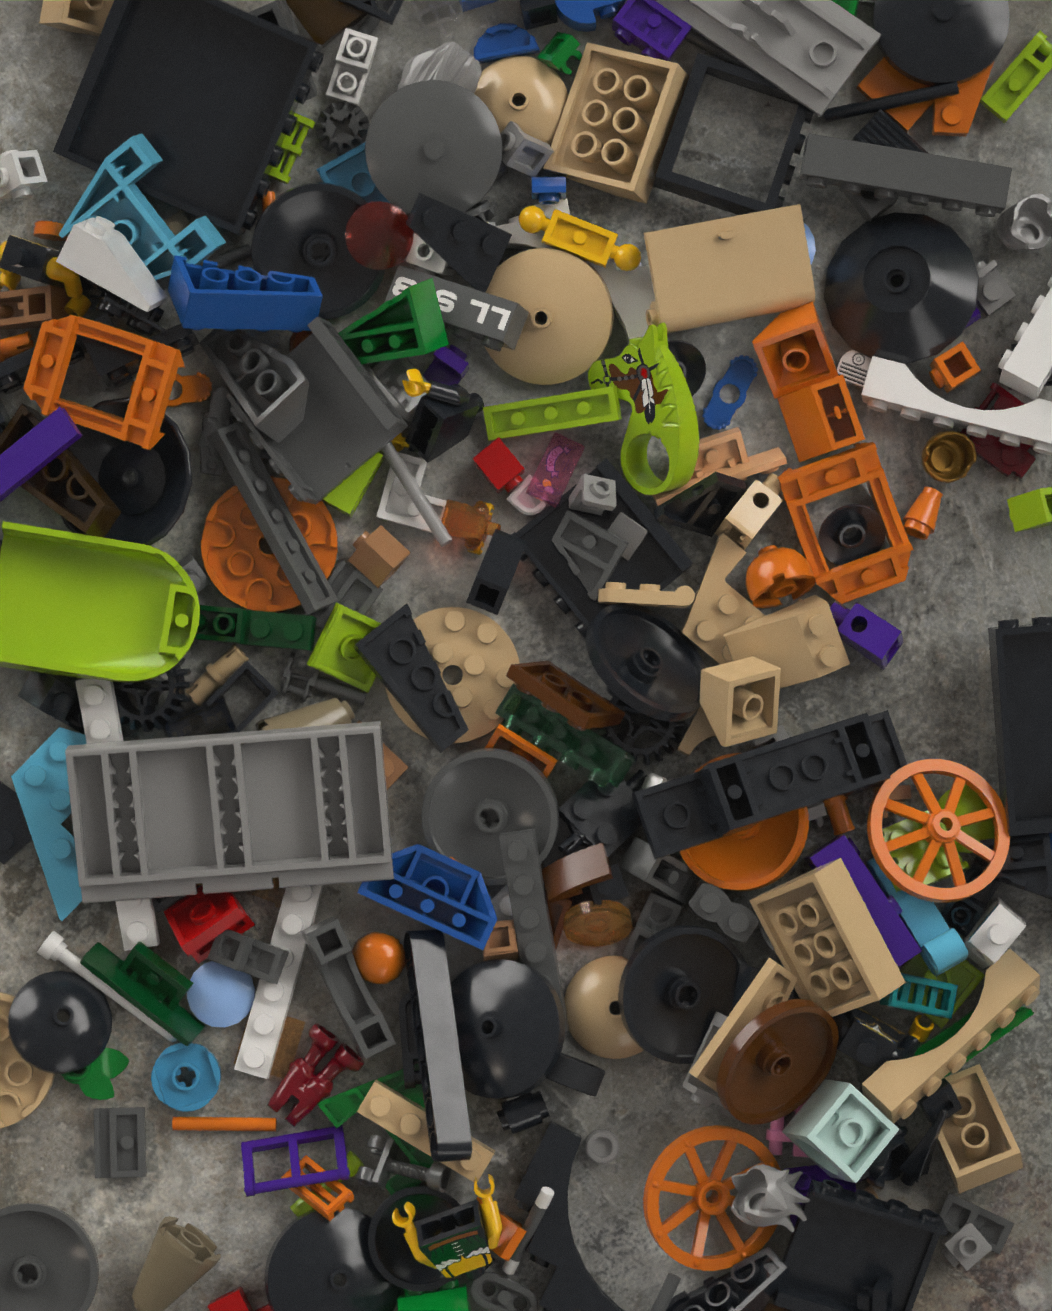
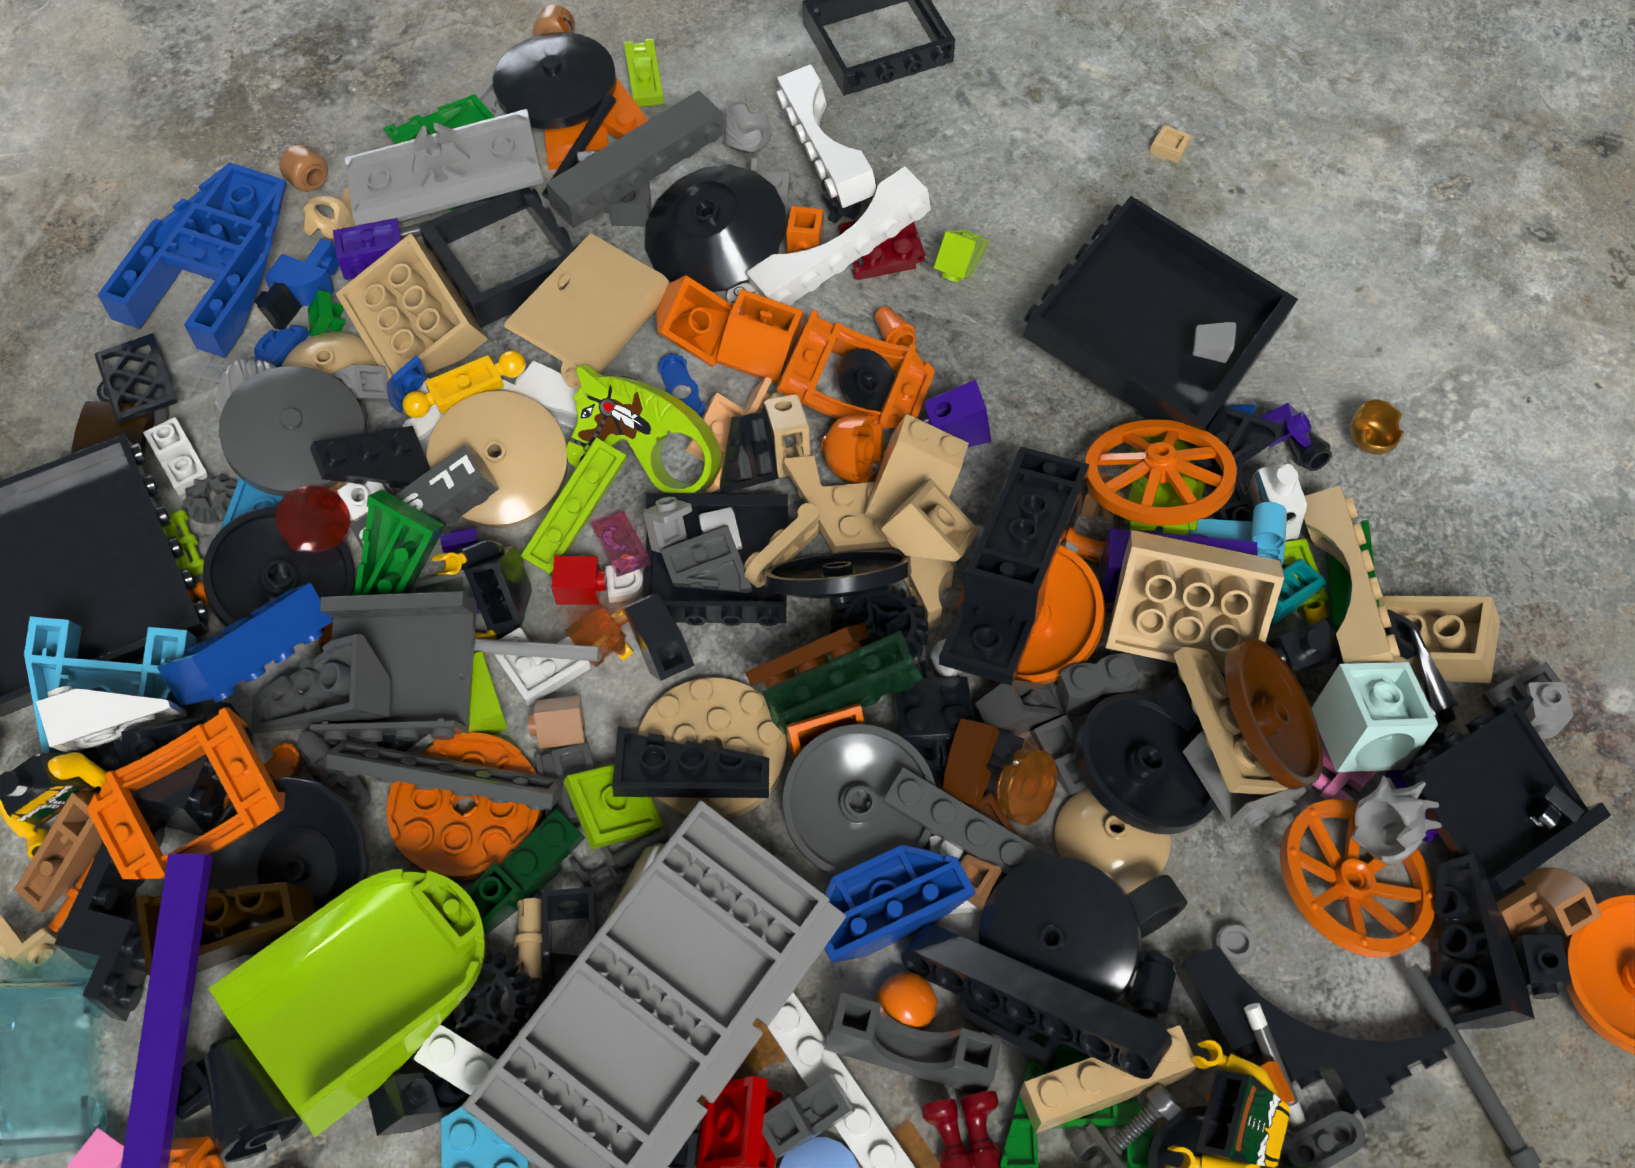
camera: 50 degrees left, 25 degrees down
(948, 456) = (866, 281): pearl gold hair -> none

